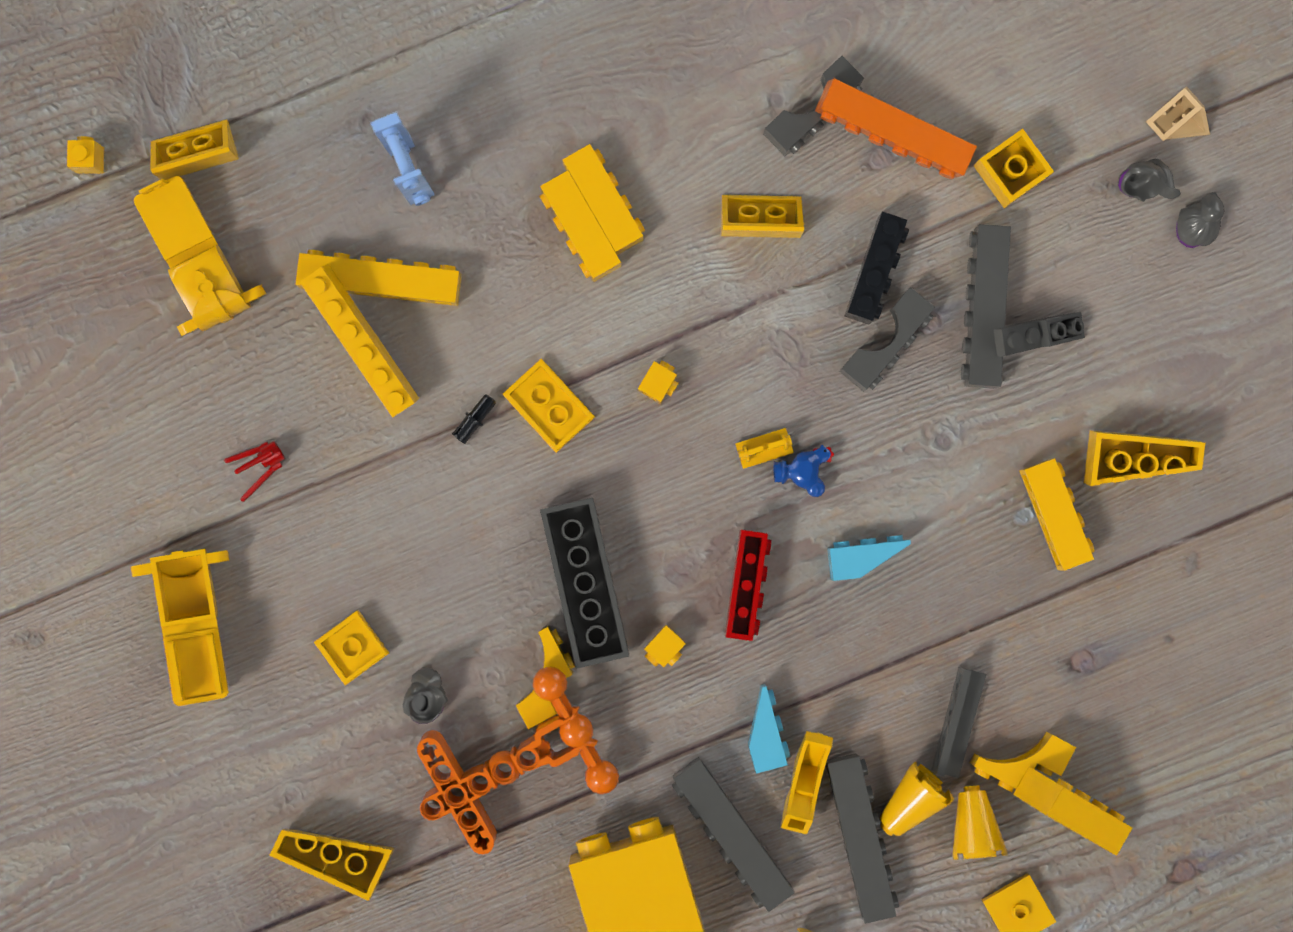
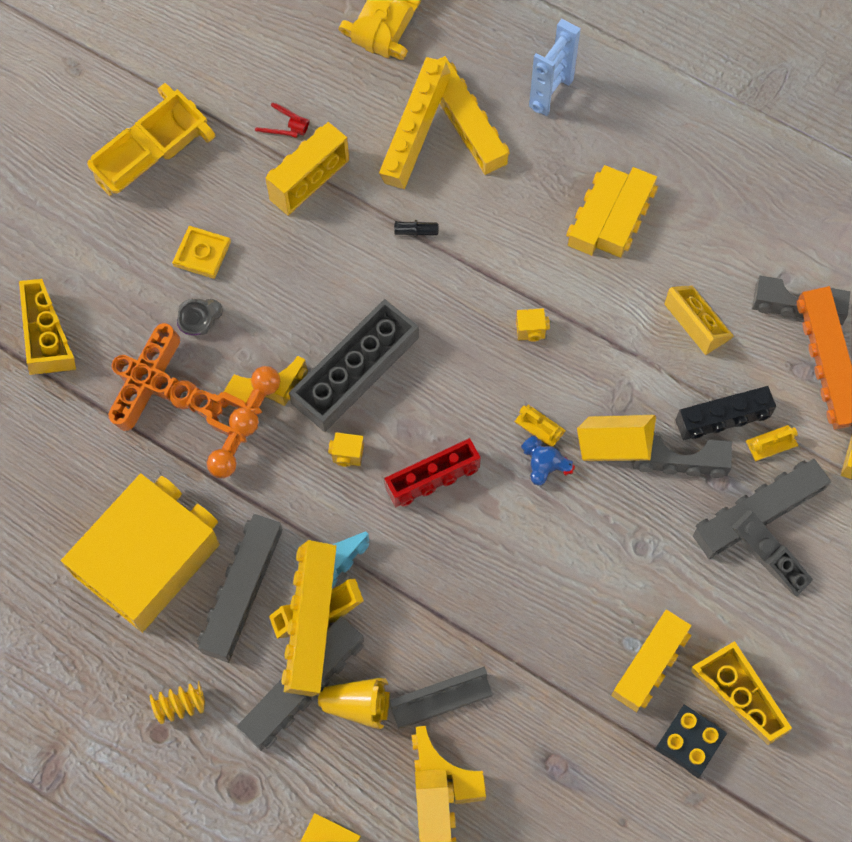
camera: 55 degrees right, 20 degrees down
(334, 483) = (307, 168): none -> yellow brick
(548, 405) = (461, 270): yellow tile -> none
(817, 798) = (309, 619): none -> yellow brick
(830, 388) = (617, 438): none -> yellow slope
(858, 560) = (508, 541): medium azure slope -> none
(930, 245) = (772, 442): none -> yellow hinge
(976, 826) = (368, 764): yellow cone -> none
(1146, 531) = (691, 741): none -> black brick

